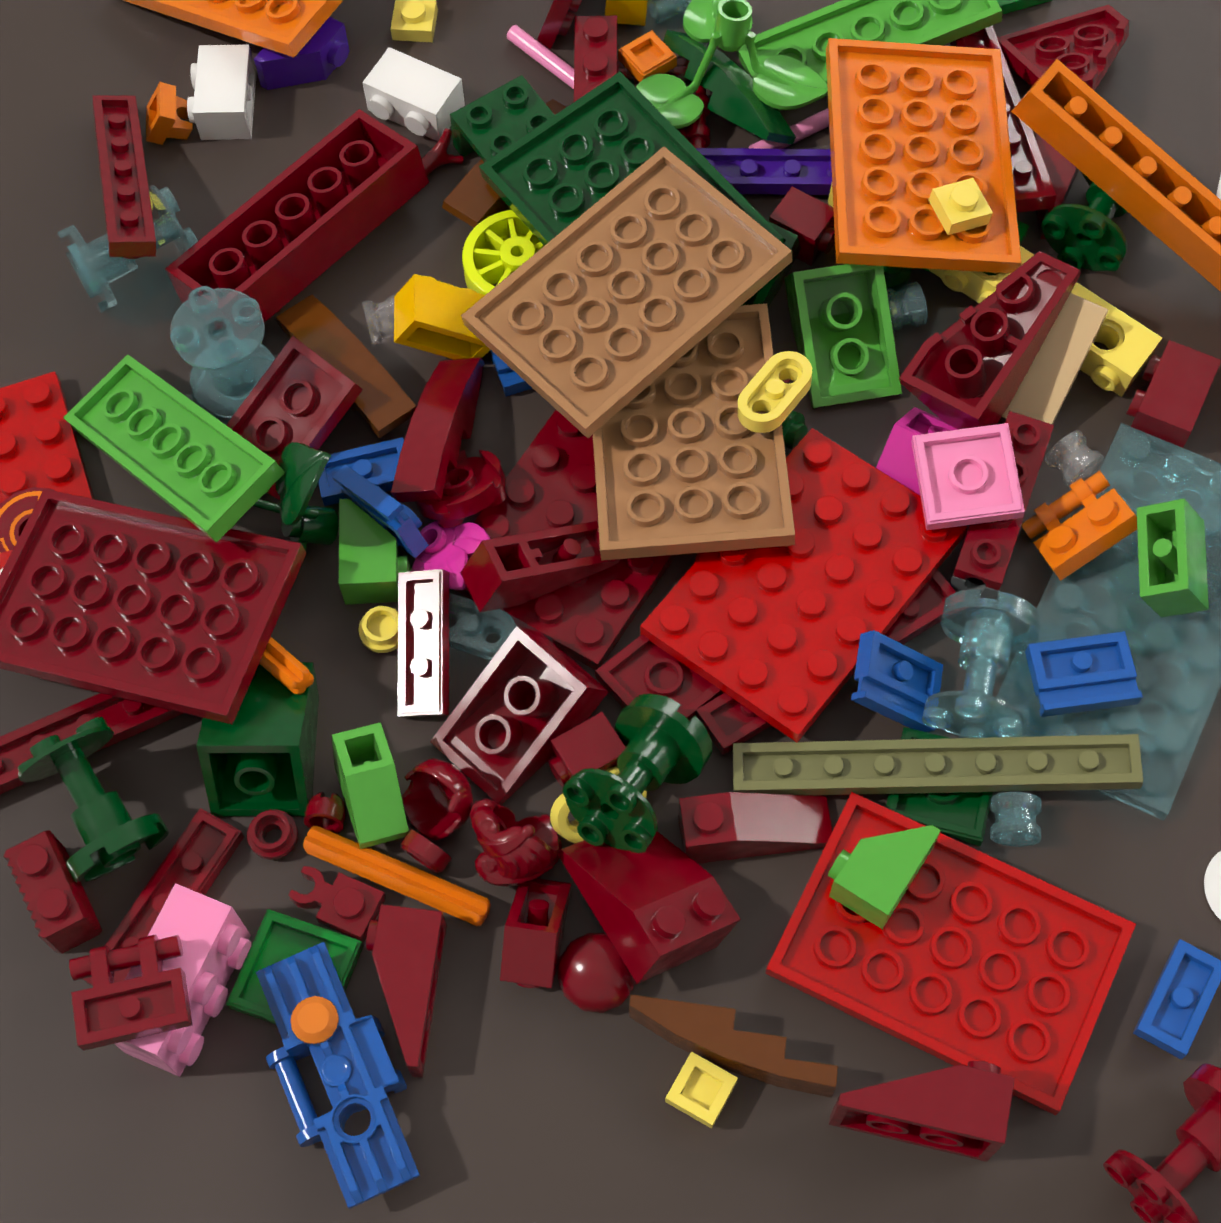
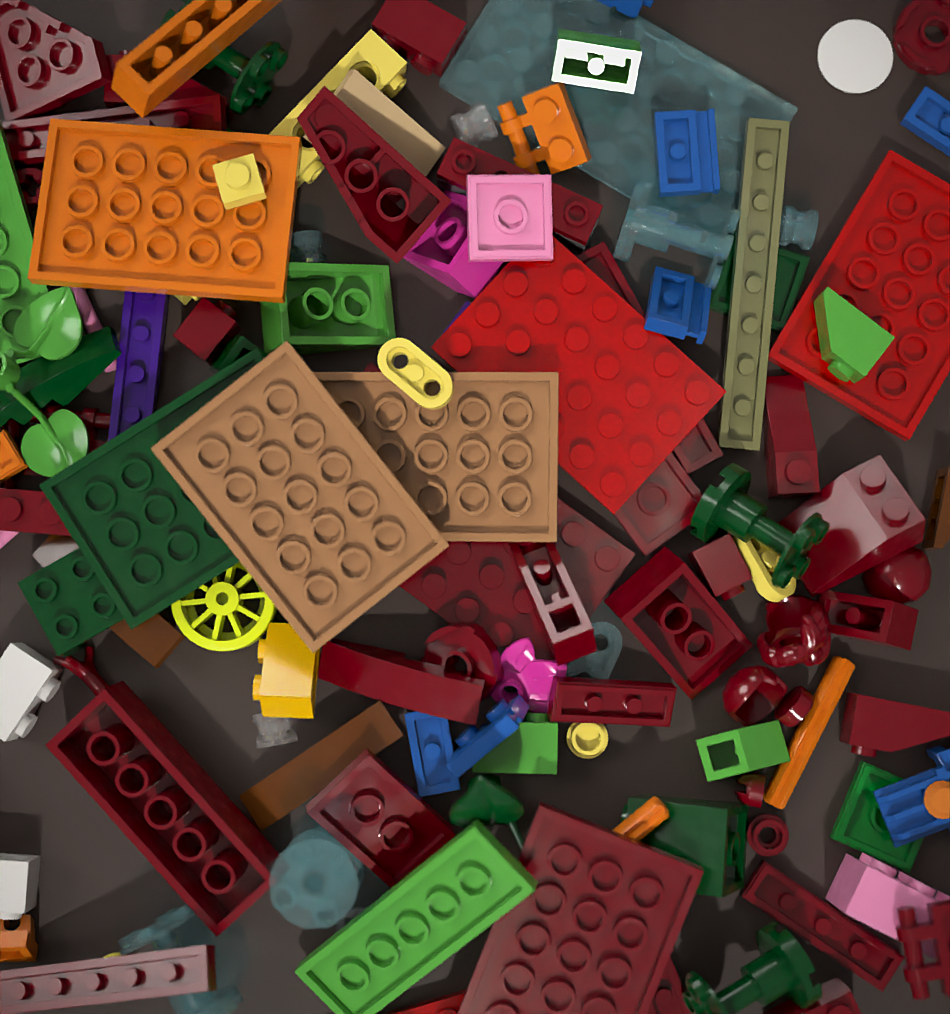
camera: 90 degrees left, 20 degrees up
(344, 905) = (831, 774): dark red plate -> none

